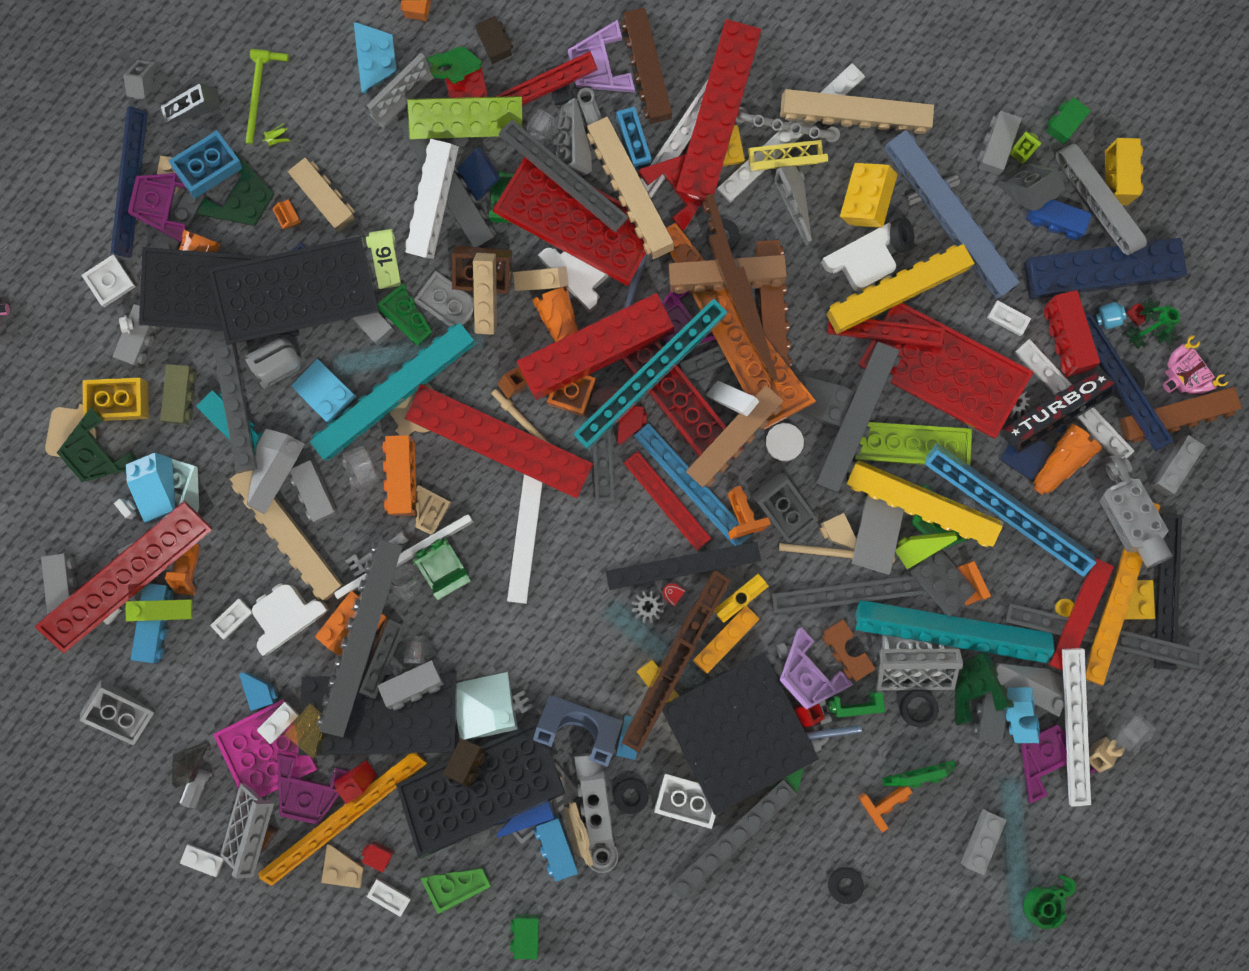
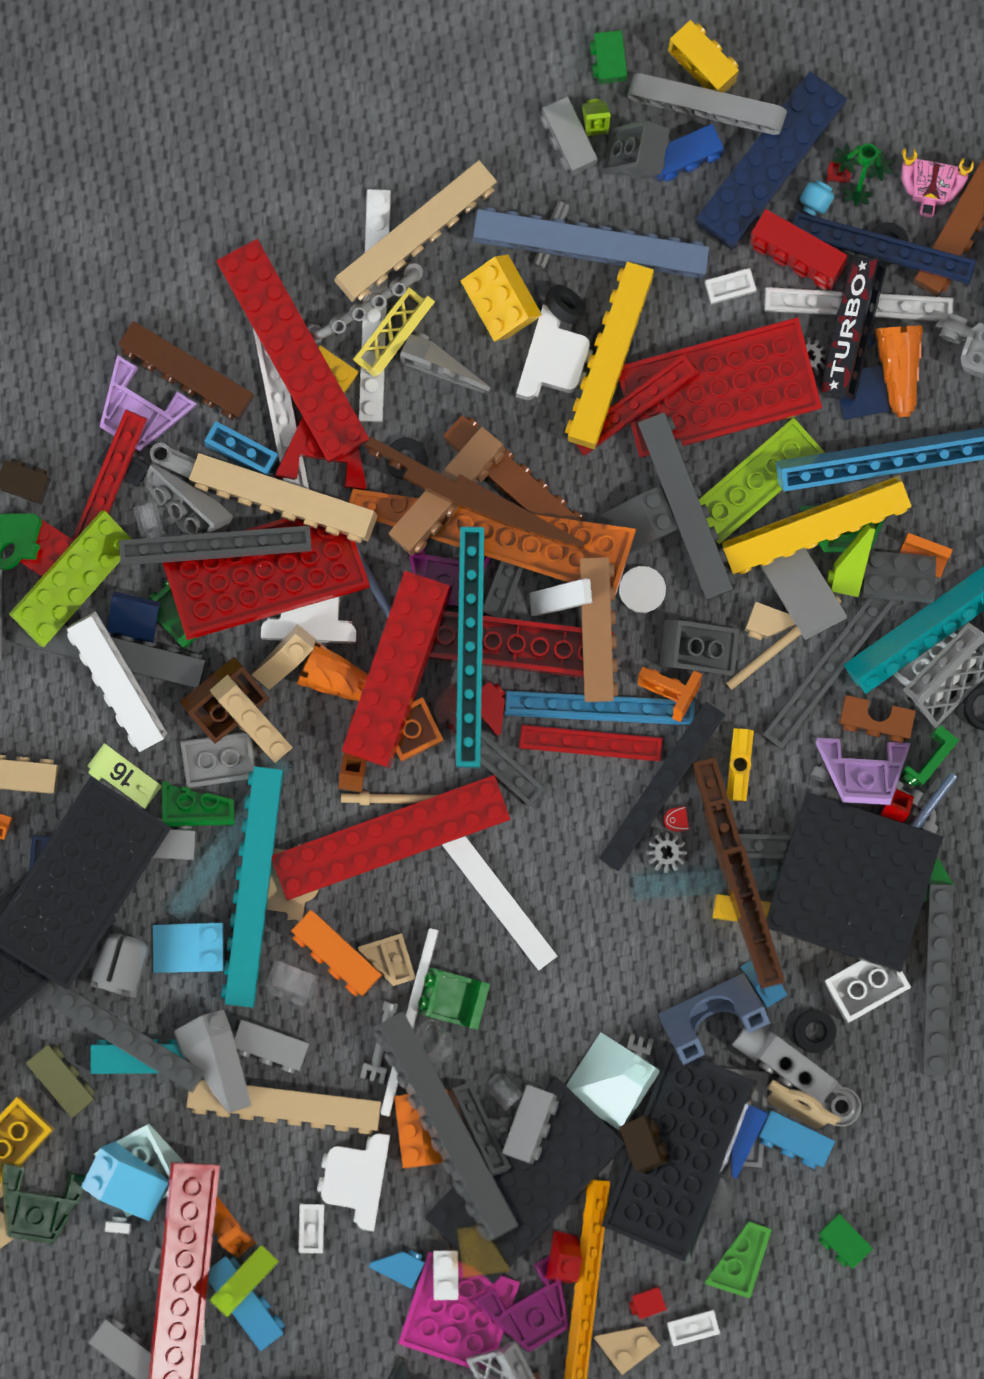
camera: 50 degrees left, 0 degrees up
(725, 639) = (762, 813): light orange plate -> none

